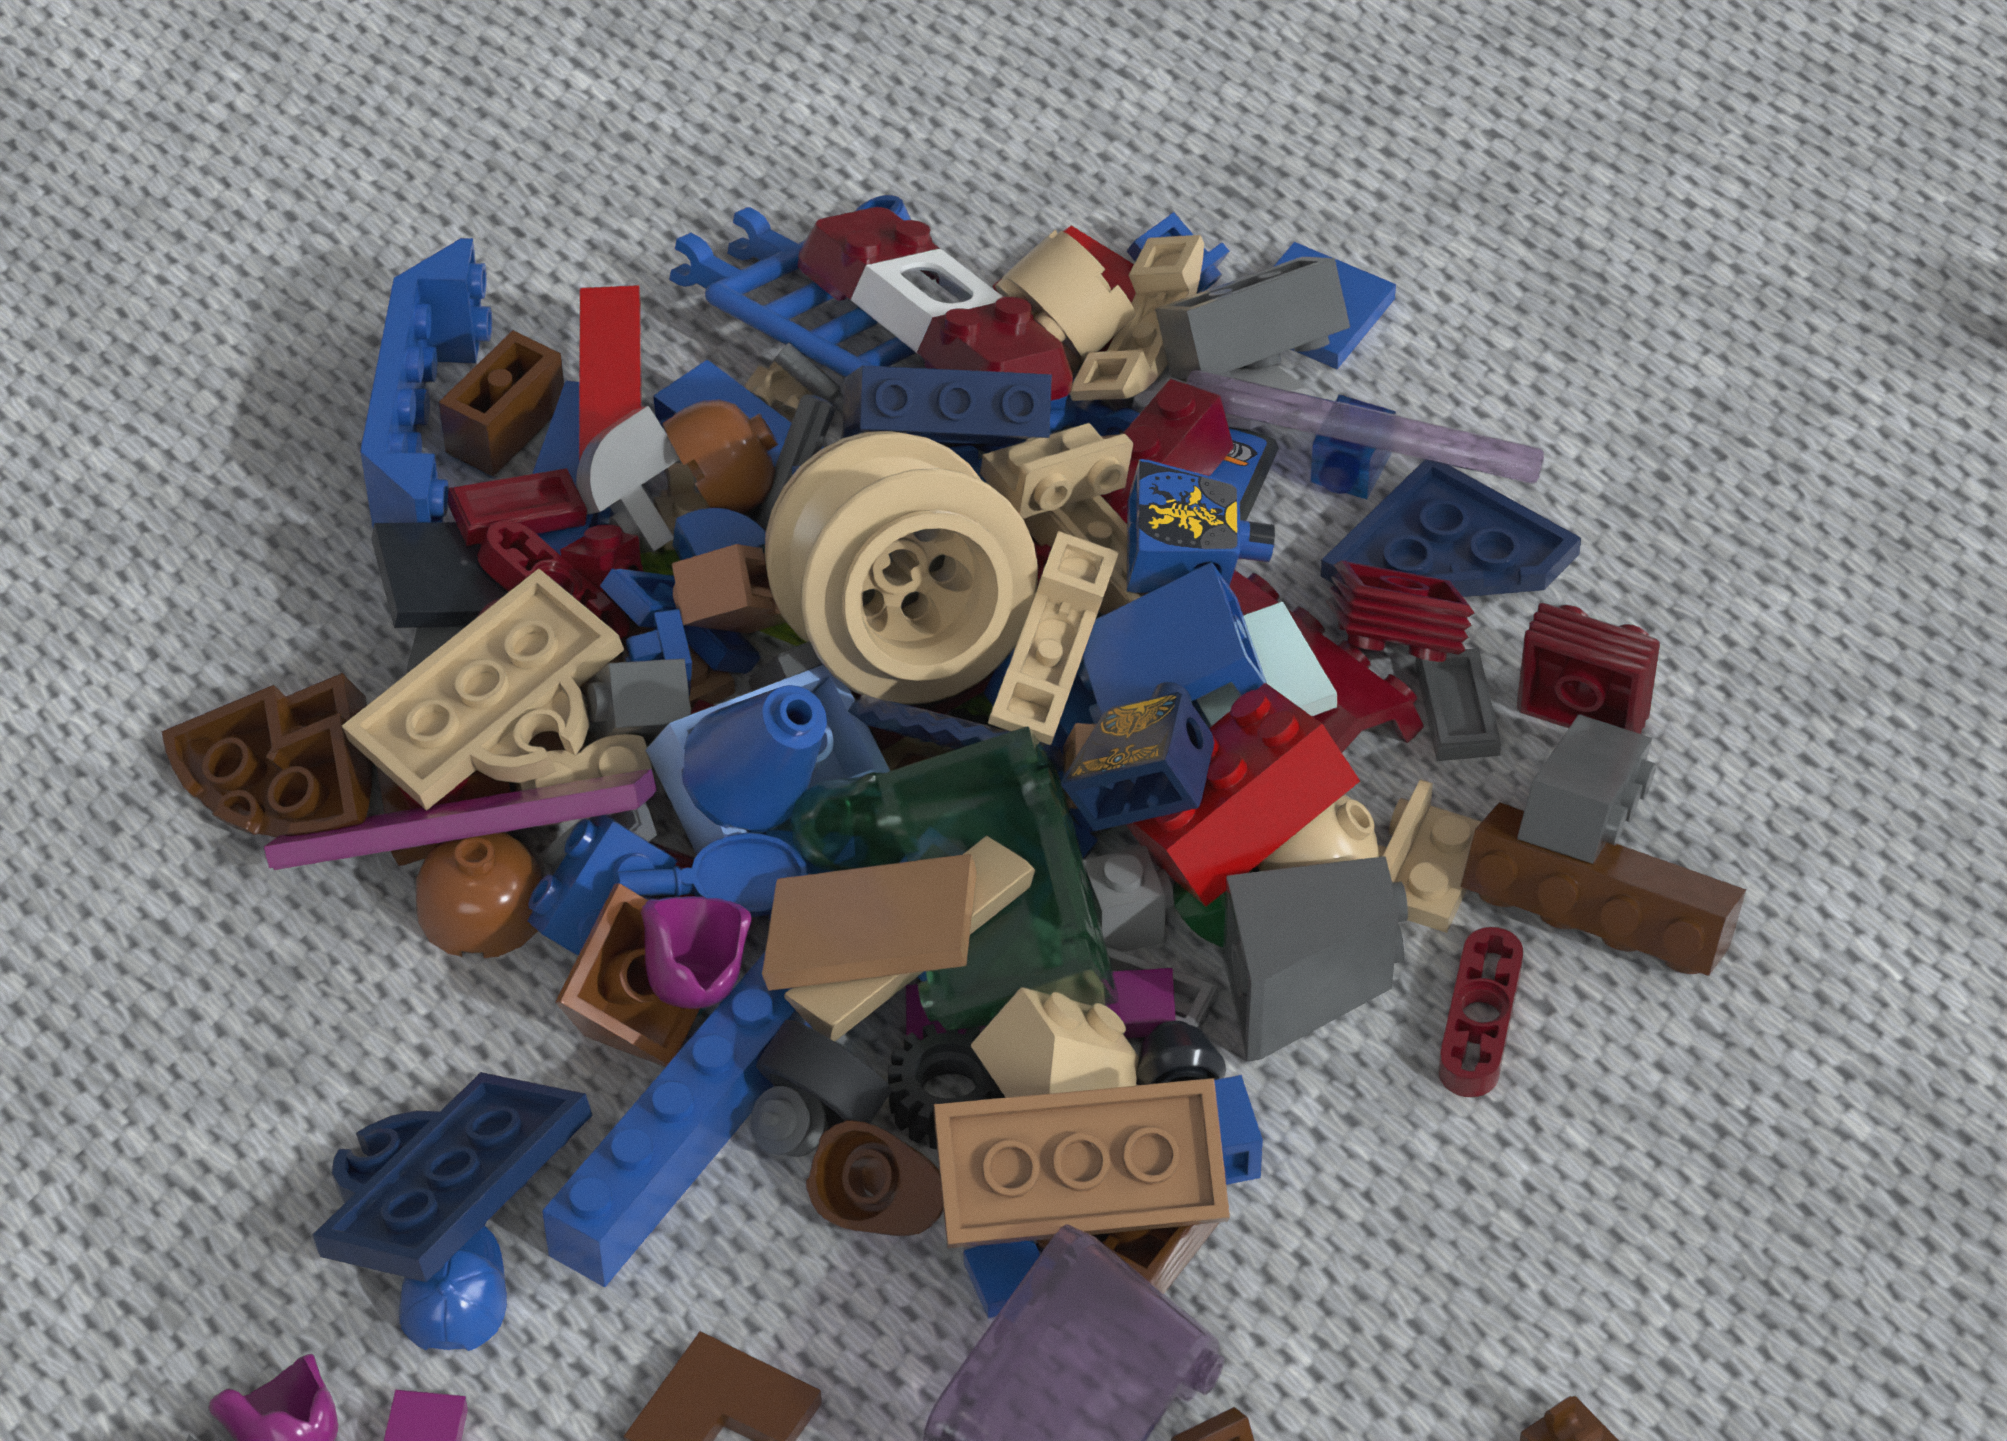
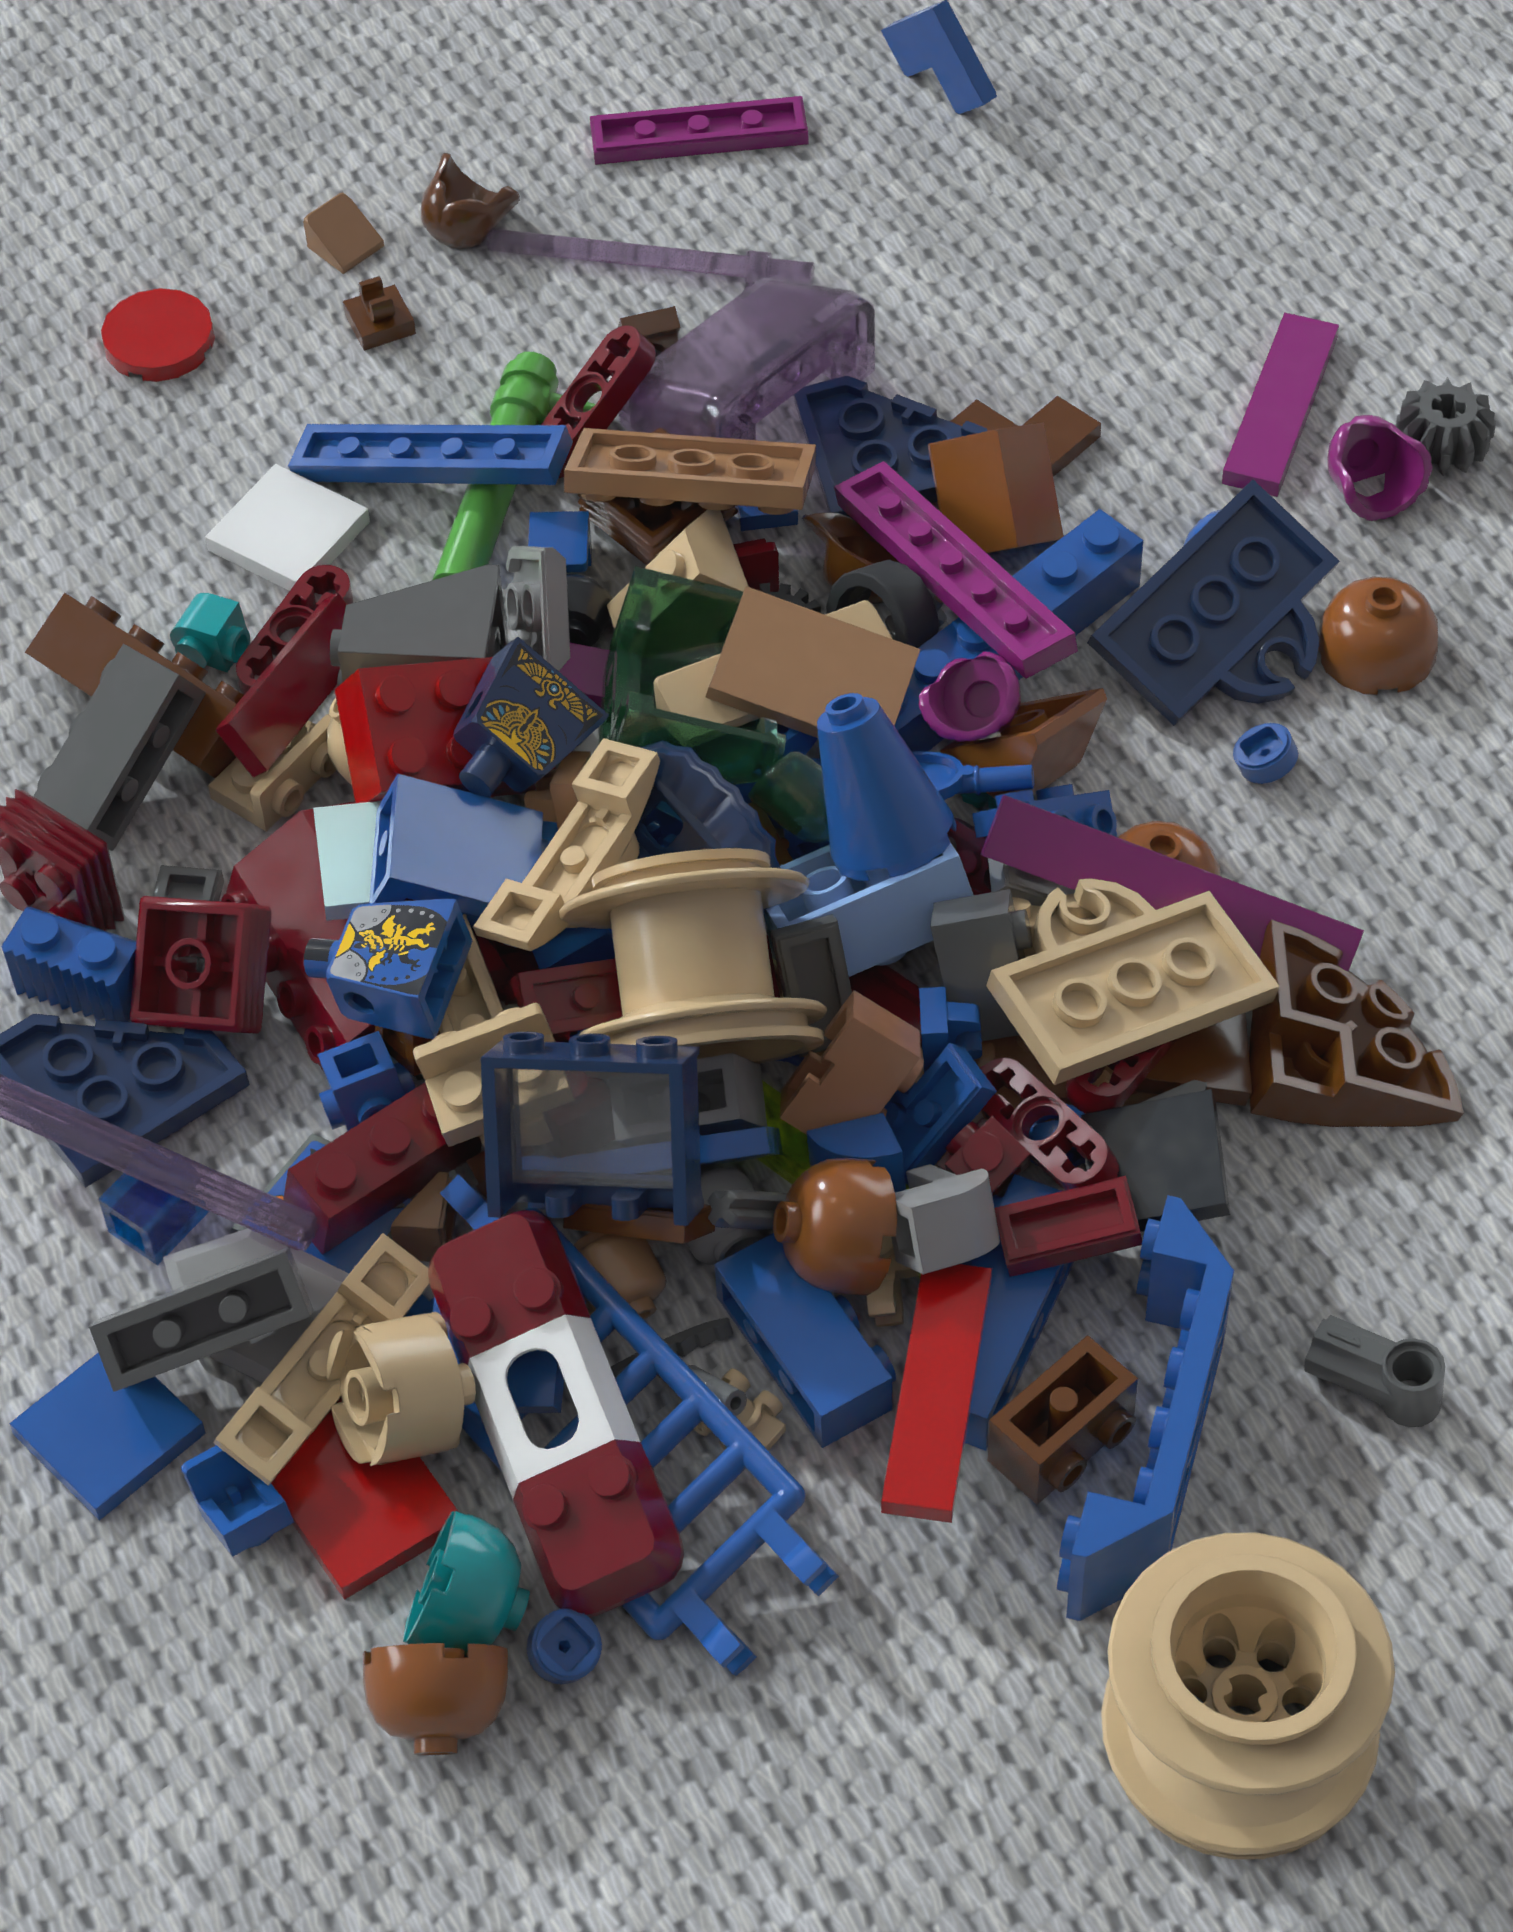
camera: 165 degrees left, 5 degrees up
(216, 501) = (1377, 1367): none -> dark grey piece
(262, 1210) = (1378, 636): none -> dark orange cylinder
(322, 213) = (1228, 1777): none -> tan wheel
(382, 1053) = (1265, 753): none -> blue tile
(720, 1272) = (998, 487): none -> dark orange slope
(752, 1101) = (956, 570): none -> magenta plate
(861, 1334) = (863, 429): none -> dark blue plate
(967, 212) = (468, 1587): none -> teal cylinder
(969, 150) = (435, 1692): none -> dark orange cylinder
(1211, 1009) = (539, 601): none -> light grey tile
(1241, 1329) = (605, 361): none -> dark red beam
(1338, 1316) = (523, 398): none -> bright green cylinder
(1409, 1196) = (432, 453): none -> blue plate
(1437, 900) = (285, 692): none -> dark red tile
(1506, 606) = (71, 965): none -> blue brick
(1549, 1138) = (286, 527): none -> white tile
(1568, 979) = (211, 632): none -> teal plate
(1833, 1368) = (158, 334): none -> red tile

